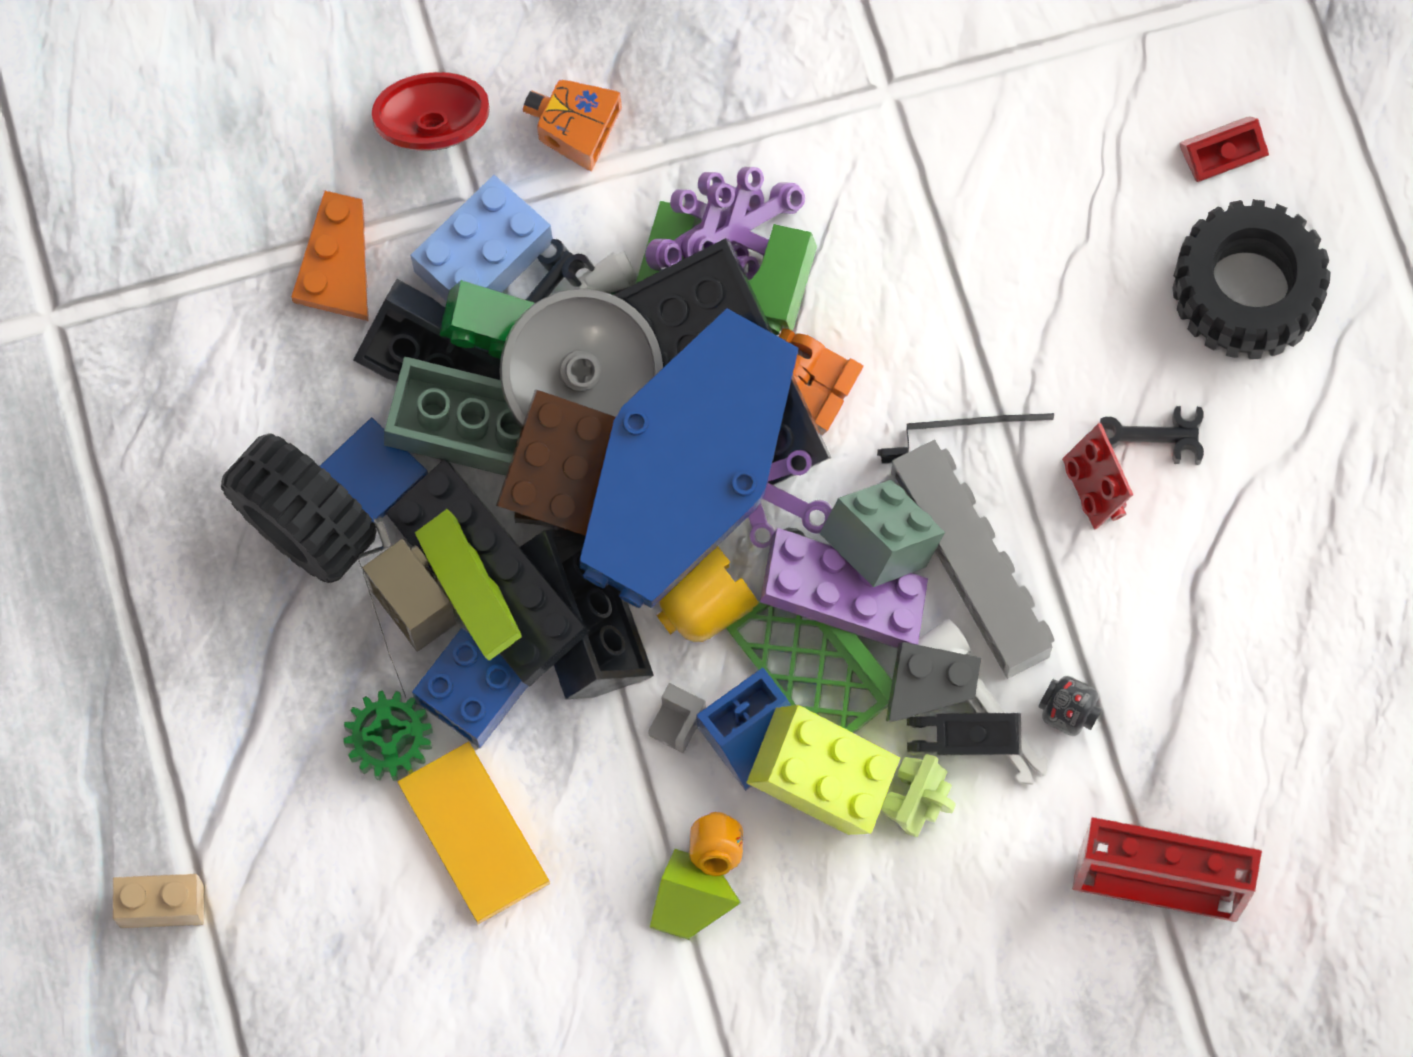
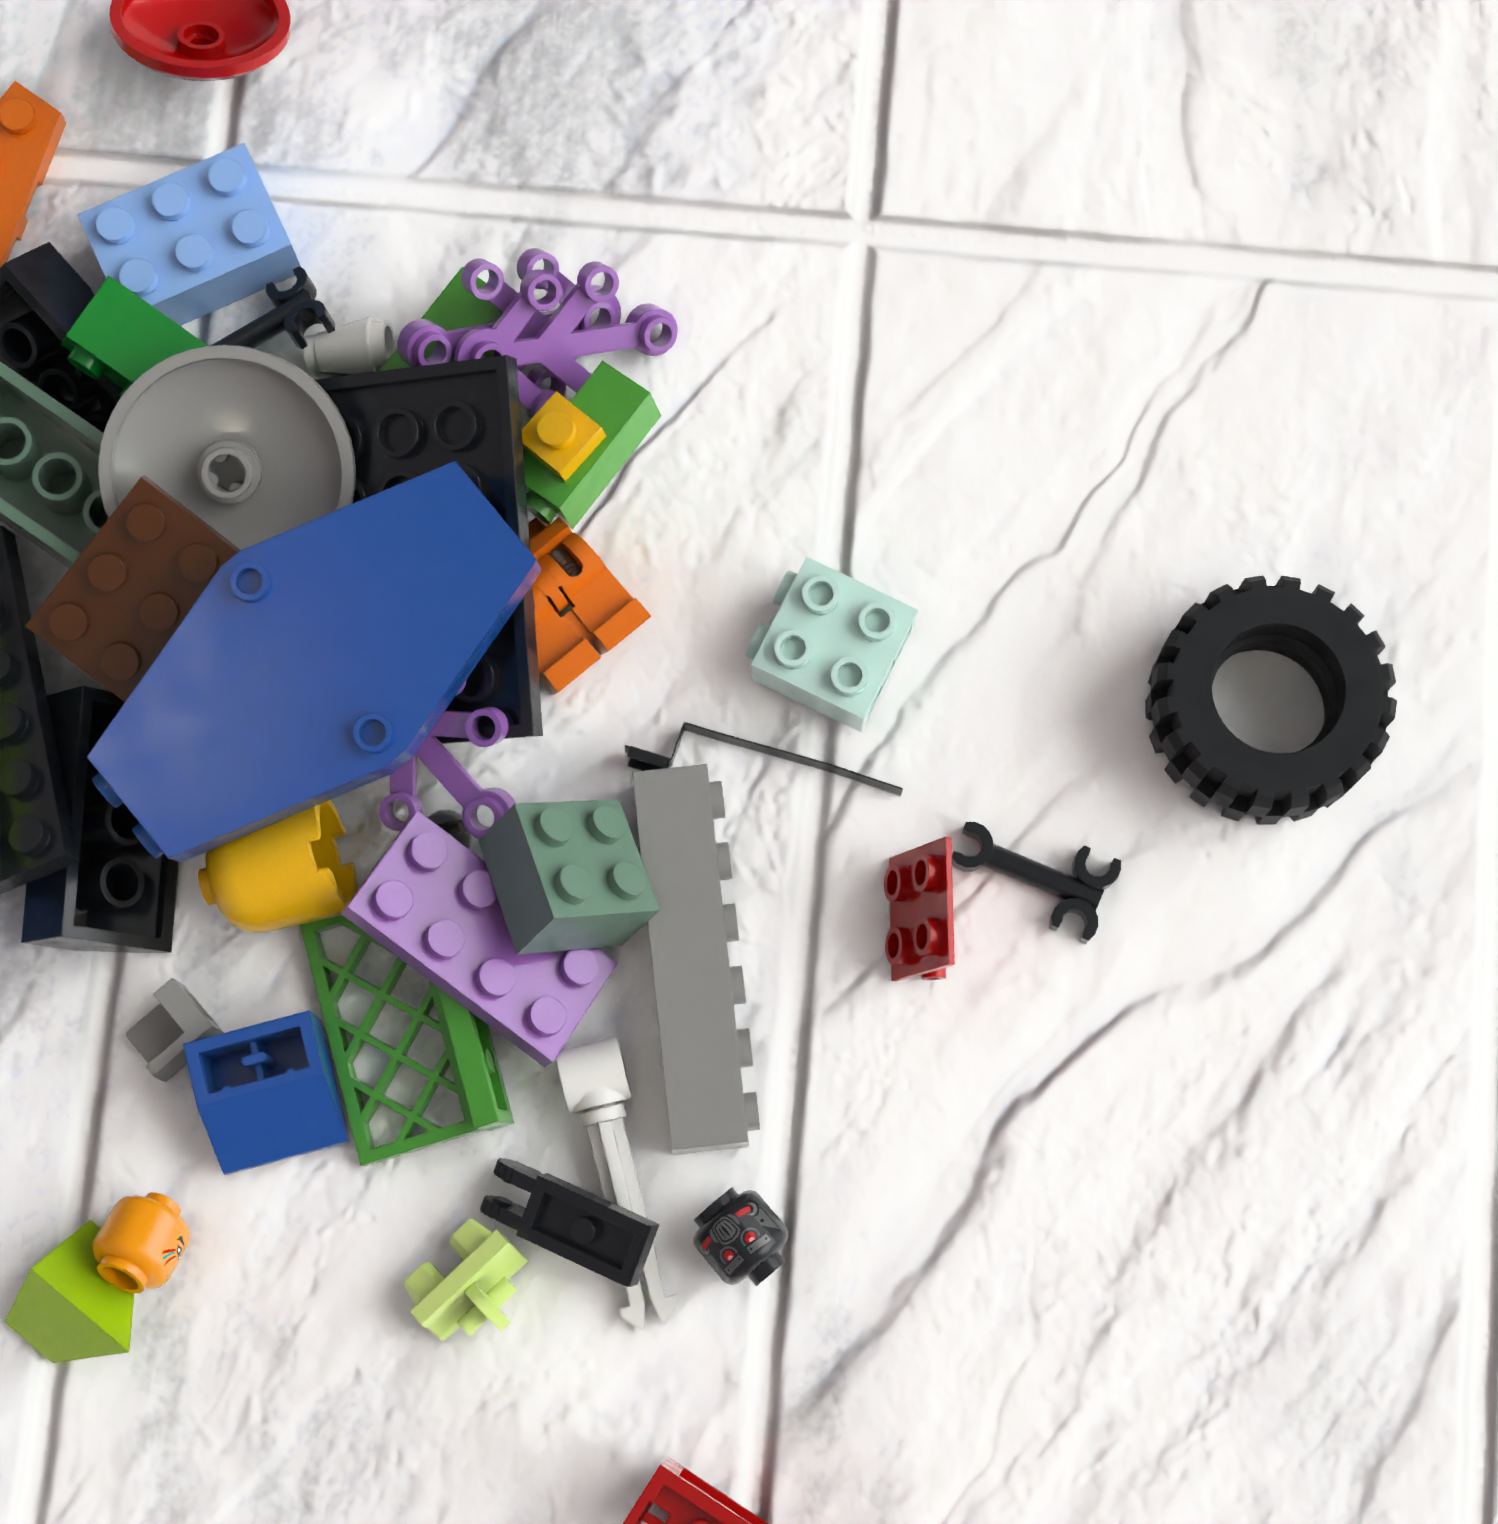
camera: 20 degrees right, 5 degrees up
(575, 119) = (403, 108): orange torso -> none
(770, 276) = (561, 436): none -> yellow plate
(823, 770) = (331, 1200): neon yellow brick -> none
(930, 680) = (546, 1125): dark grey wing -> none
(977, 342) = (831, 643): none -> light aqua brick
(1224, 148) = (1313, 490): red slope -> none

